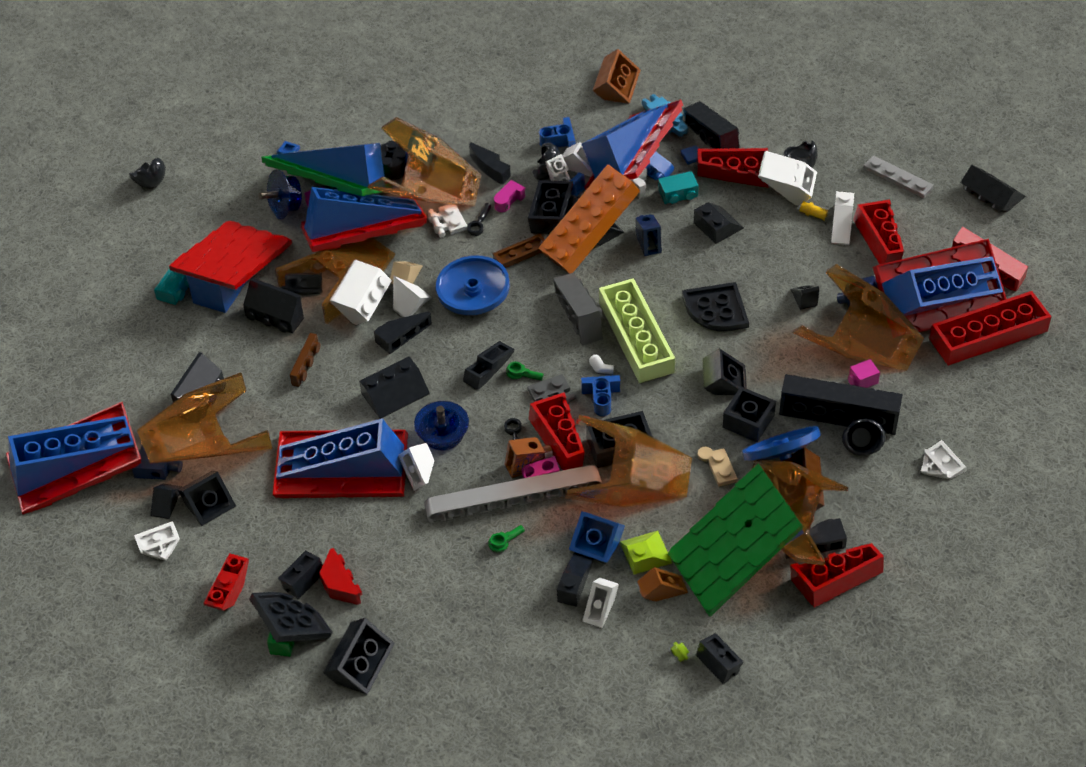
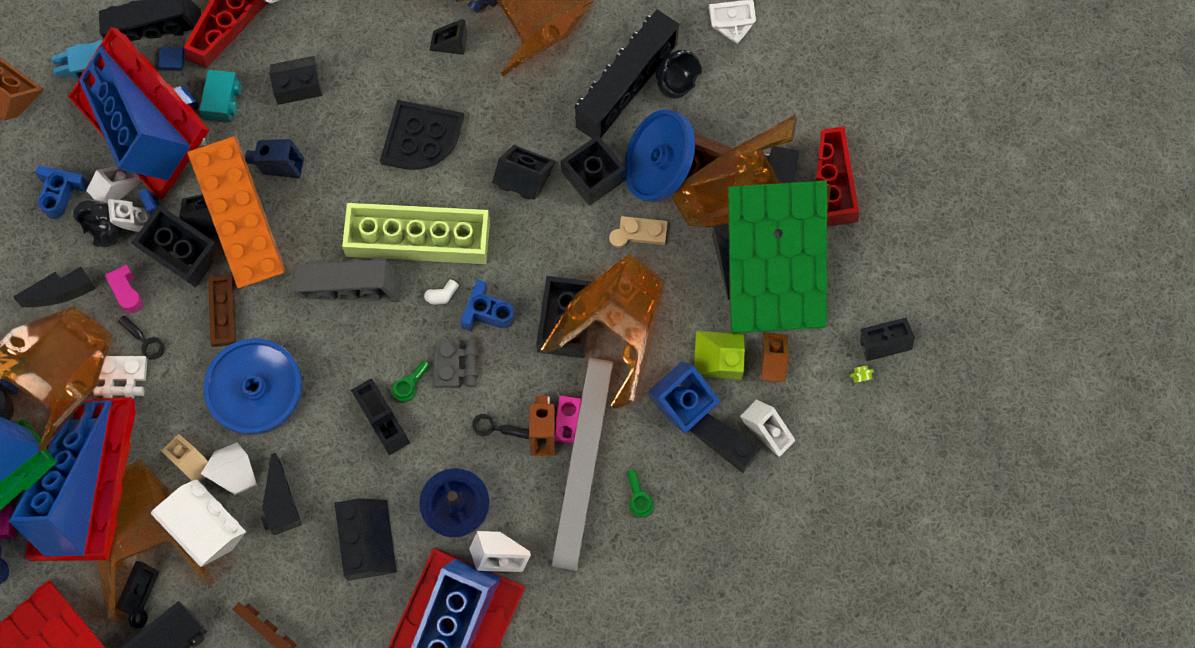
camera: 70 degrees left, 20 degrees up
(556, 428) = (522, 377): red wedge -> none
(864, 374) = (591, 35): dark pink brick -> none

